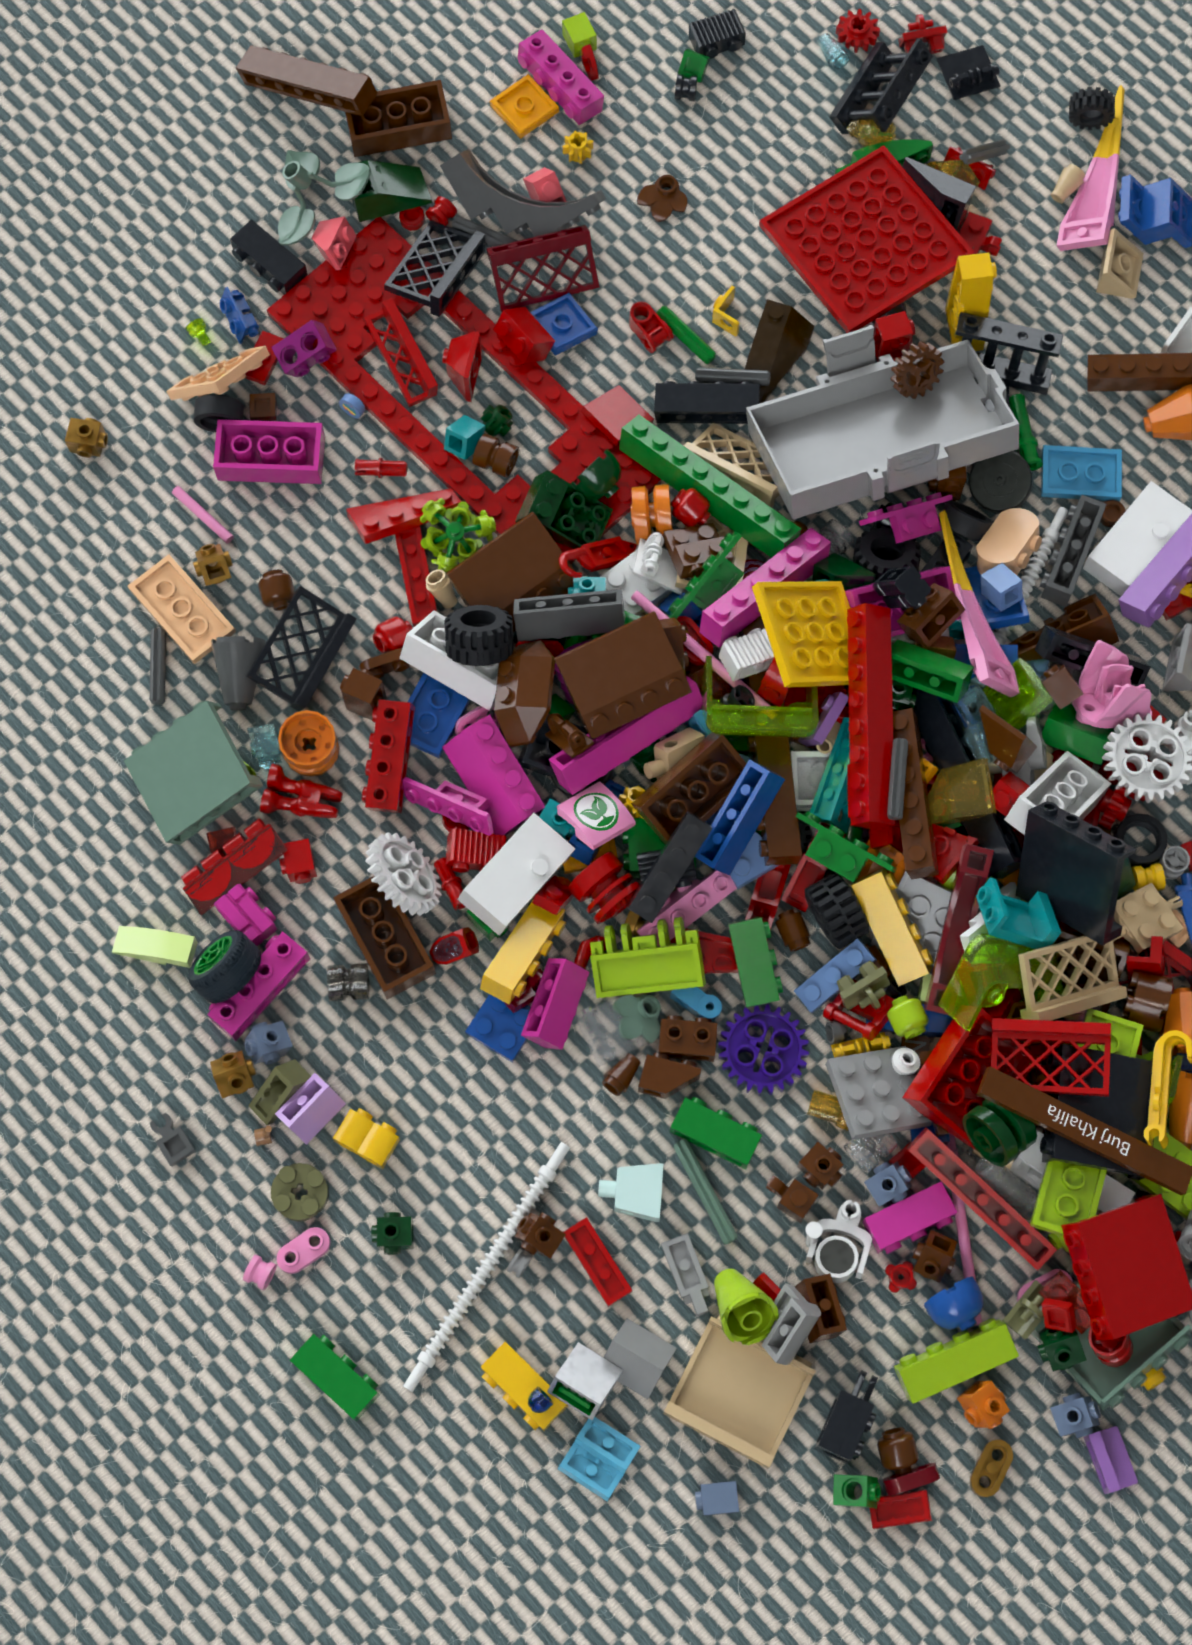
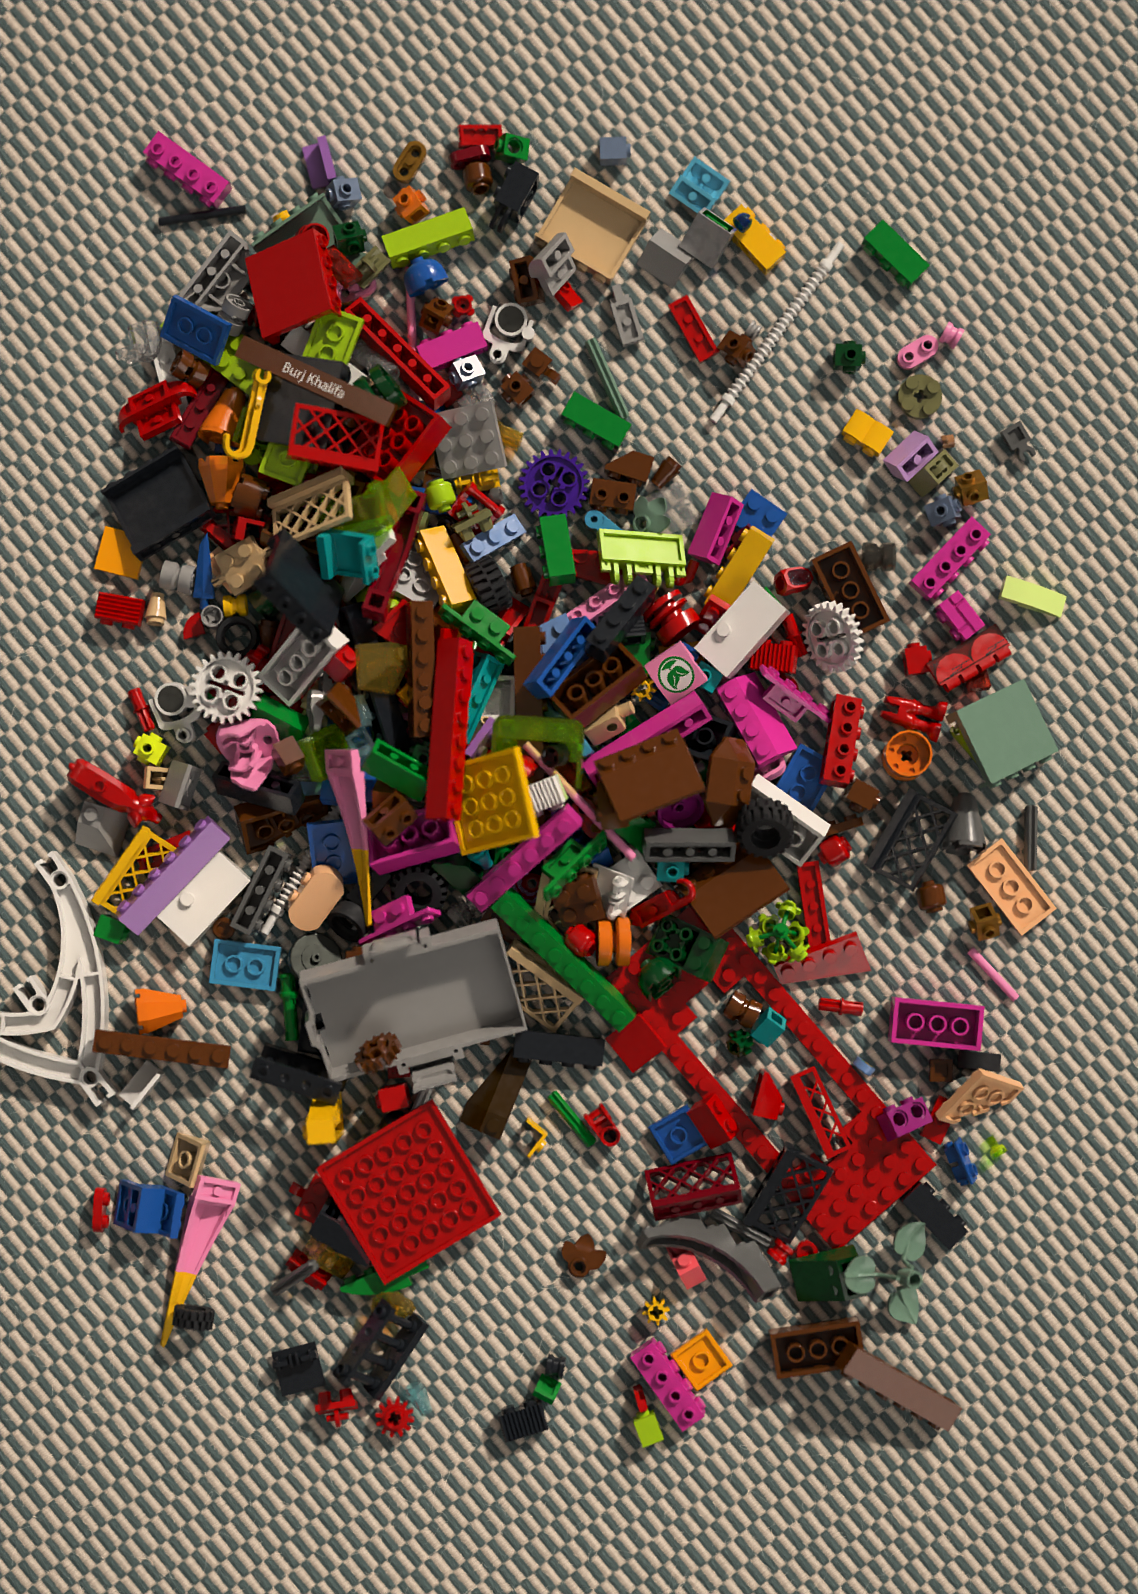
camera: 175 degrees left, 15 degrees up
(86, 437) = (1100, 1048): pearl gold brick -> none
(224, 966) = (977, 569): black wheel -> none
(265, 745) = (942, 760): clear light blue brick -> none
(334, 240) = (876, 1223): coral slope -> none
(441, 588) = (797, 889): tan cone -> none
(567, 736) = (695, 735): reddish brown hinge -> none
(636, 1191) = (660, 380): light aqua torso -> none
(732, 376) = (534, 1072): dark grey axle -> none
(743, 1308) = (586, 282): lime cone -> none
(897, 779) = (432, 673): dark grey axle -> none
(902, 588) = (413, 835): black brick -> none
(902, 1067) = (449, 456): white plate -> none
(1001, 587) = (327, 853): medium blue brick -> none
(1058, 1315) = (350, 255): red tile -> none
(1069, 181) = (223, 1246): tan cone -> none

